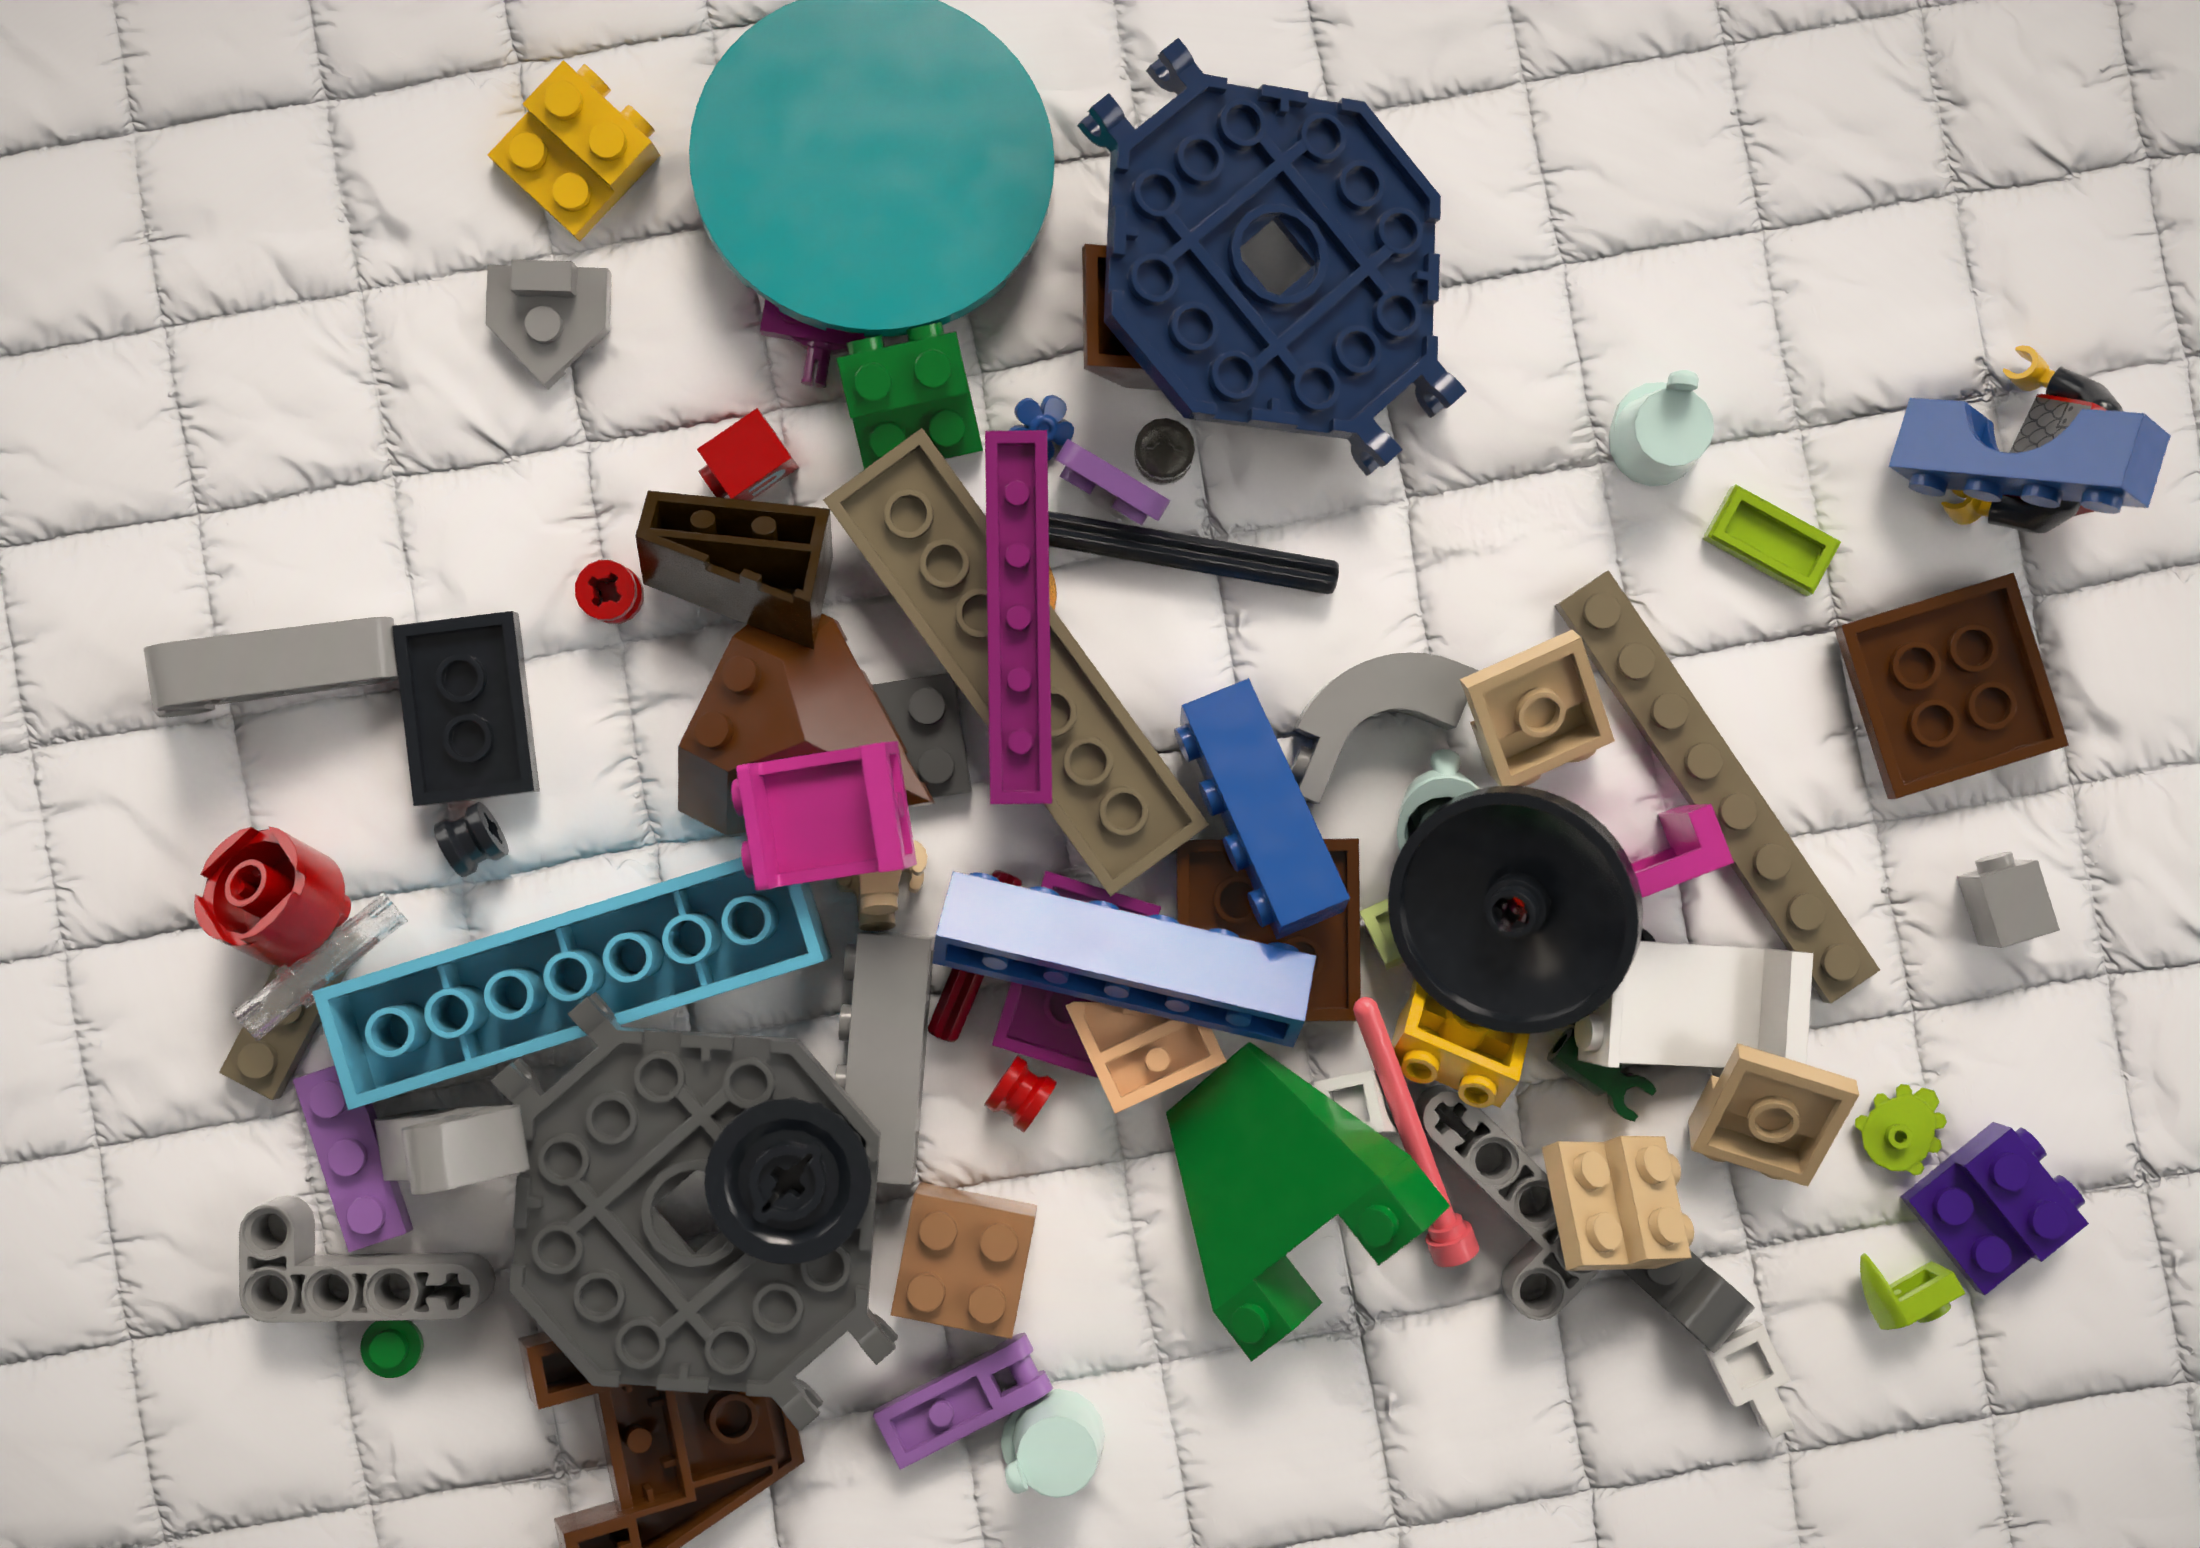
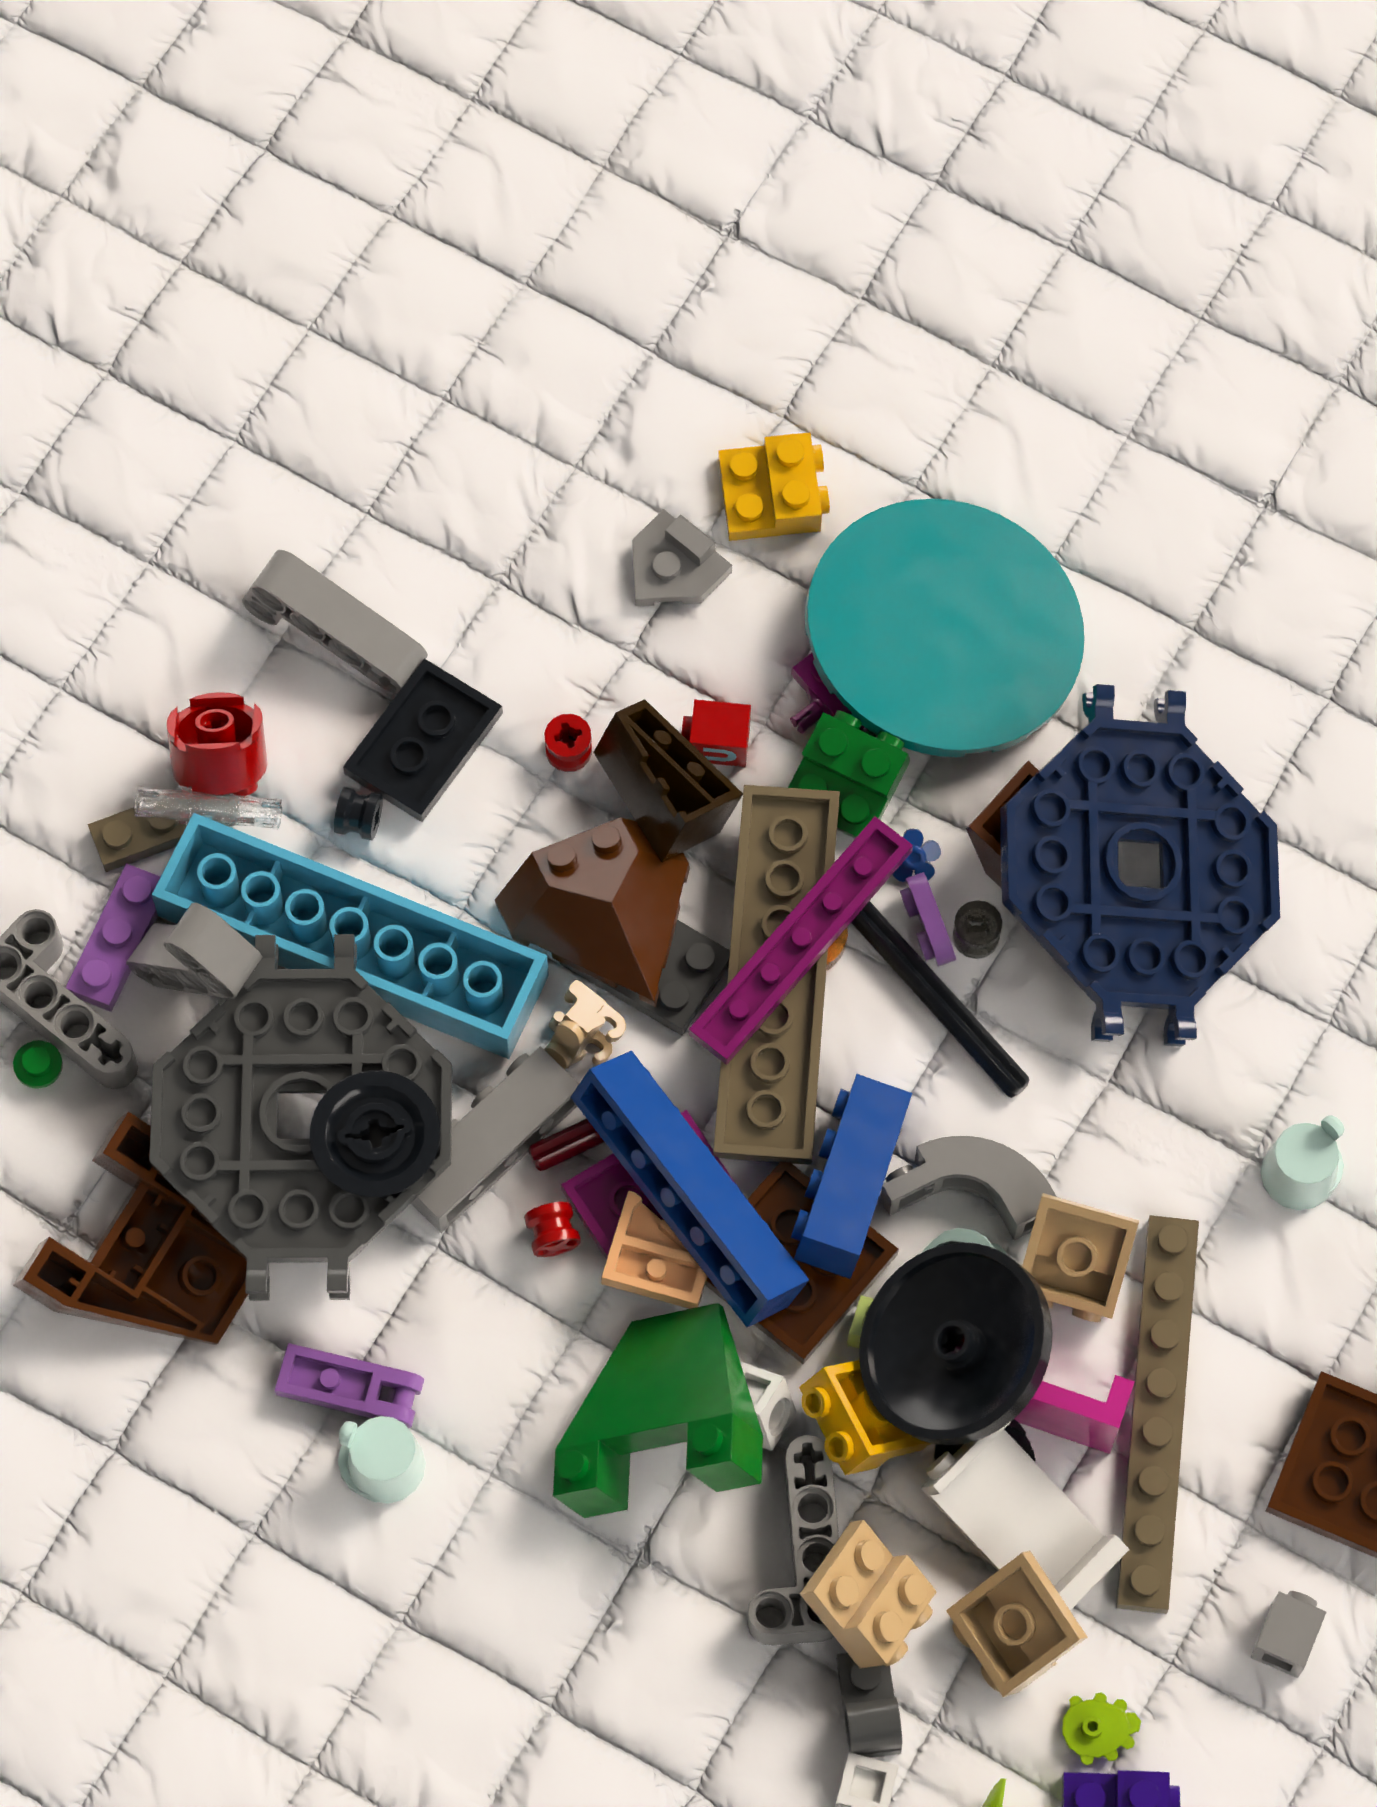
camera: 45 degrees right, 20 degrees down
(824, 816) = (585, 950): dark pink panel -> none
(964, 1260) = (429, 1297): medium nougat brick -> none
(1449, 1237) = (745, 1538): coral piece -> none
(1597, 1078) = (928, 1525): dark green bar -> none
(1771, 540) = (1322, 1291): lime tile -> none

